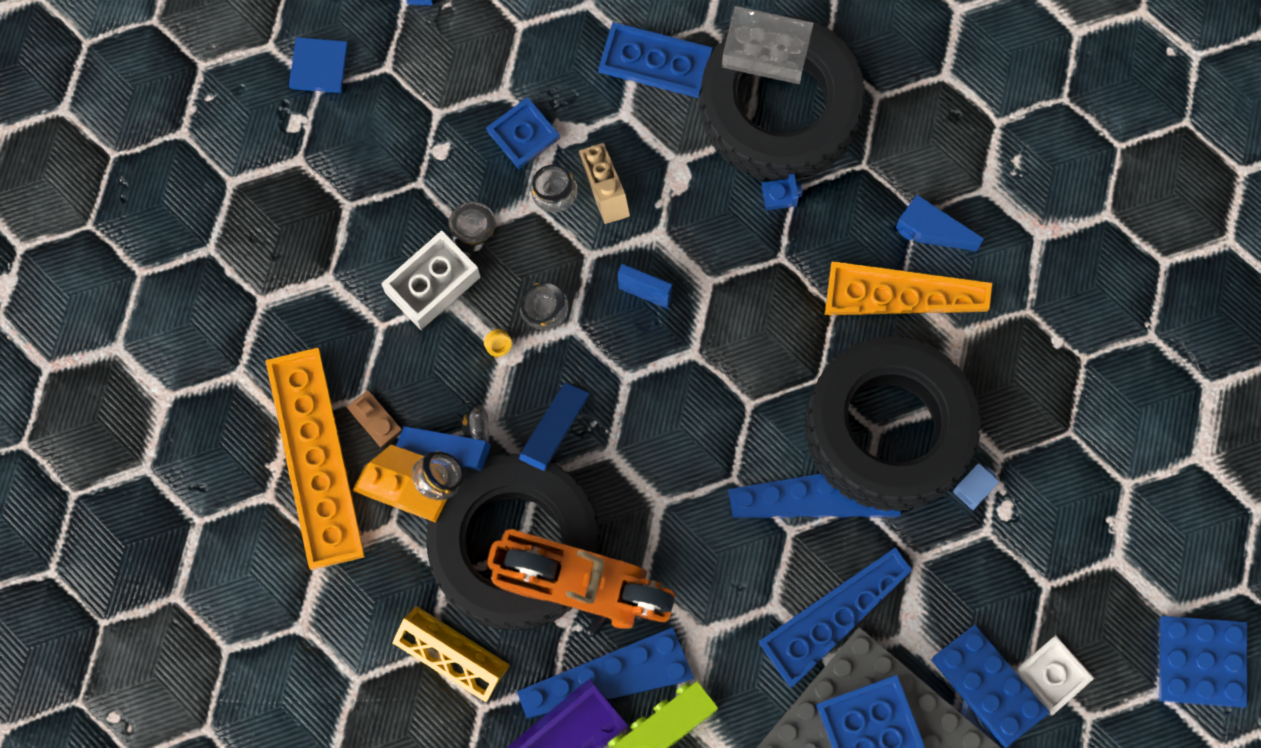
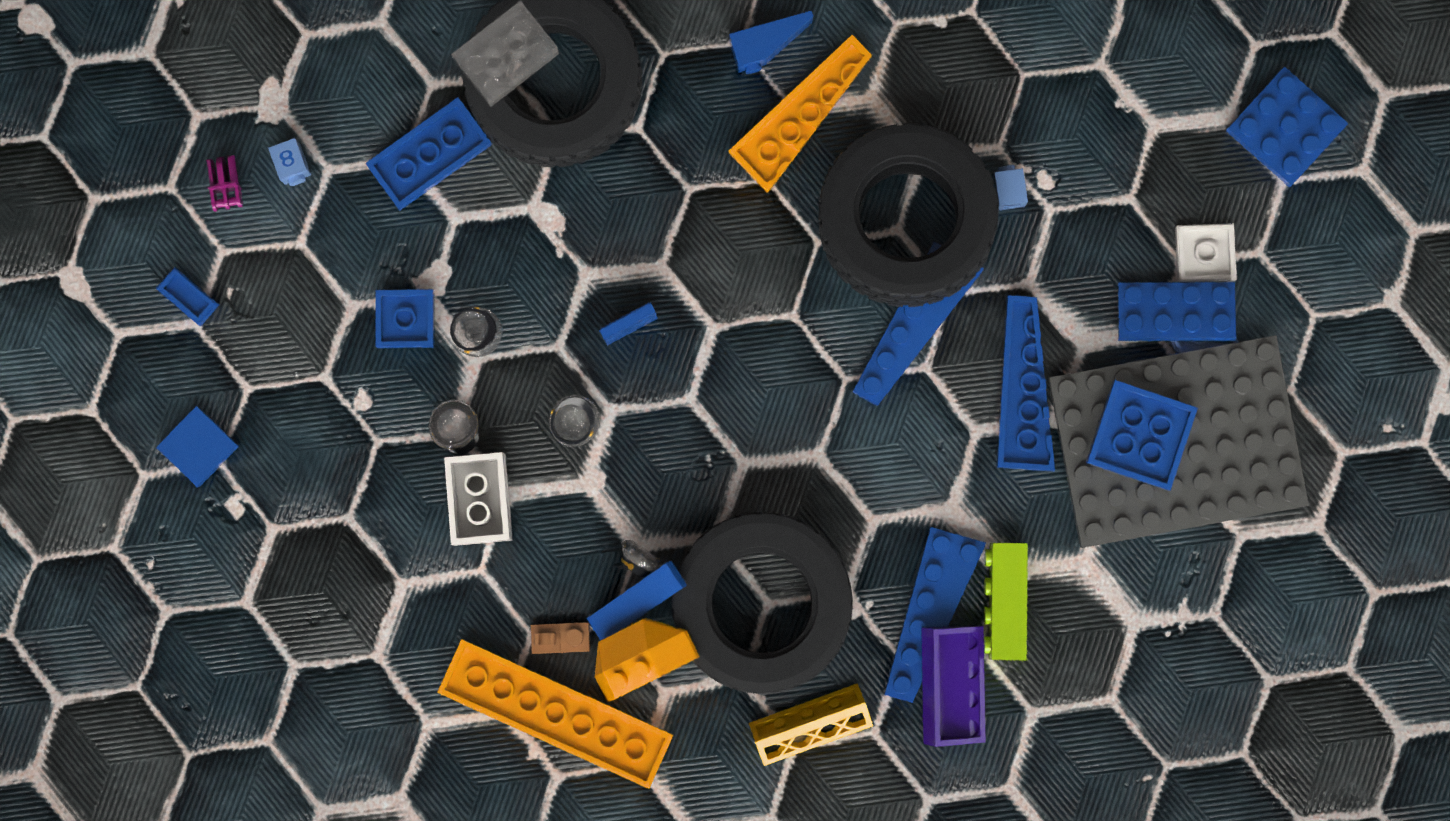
camera: 50 degrees left, 10 degrees up
(437, 475) = (663, 625): clear piece -> none
(498, 343) = (576, 484): yellow tile -> none
(554, 426) = (691, 494): blue tile -> none
(578, 580) = (845, 578): orange piece -> none
(604, 183) = (506, 284): tan slope -> none
(781, 193) = (634, 143): blue bracket -> none

